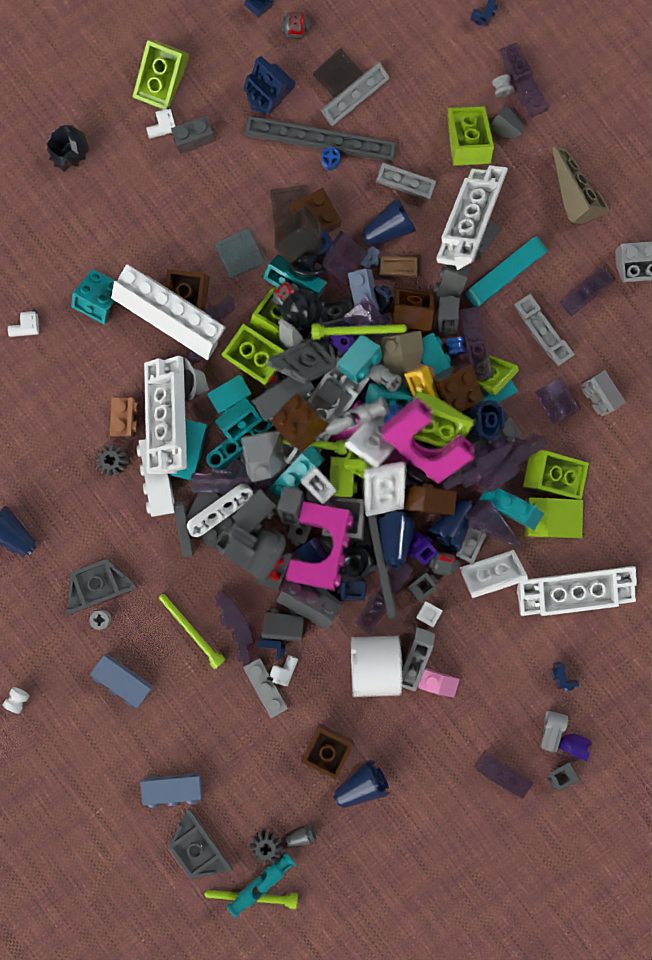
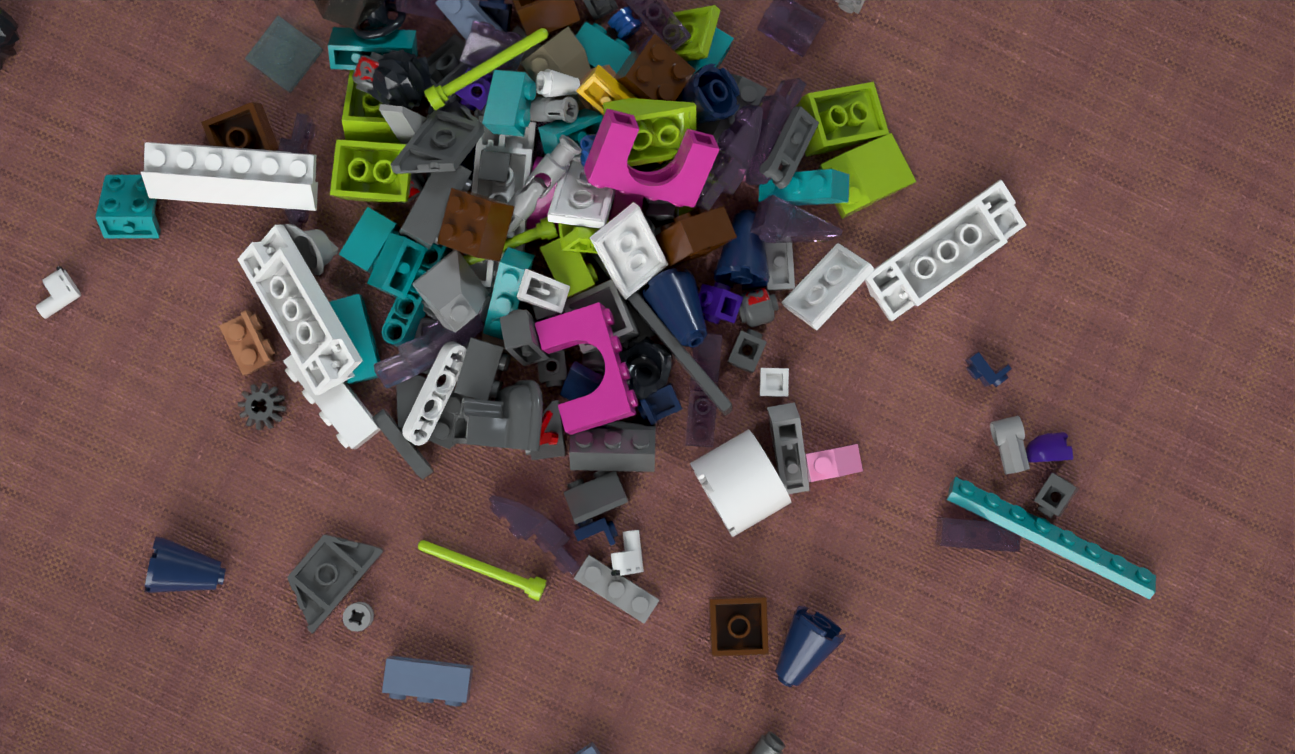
camera: 25 degrees left, 0 degrees up
(393, 362) = (554, 84): none -> white cone
(516, 478) = (789, 147): none -> dark grey plate
(548, 802) = (1052, 537): none -> teal plate

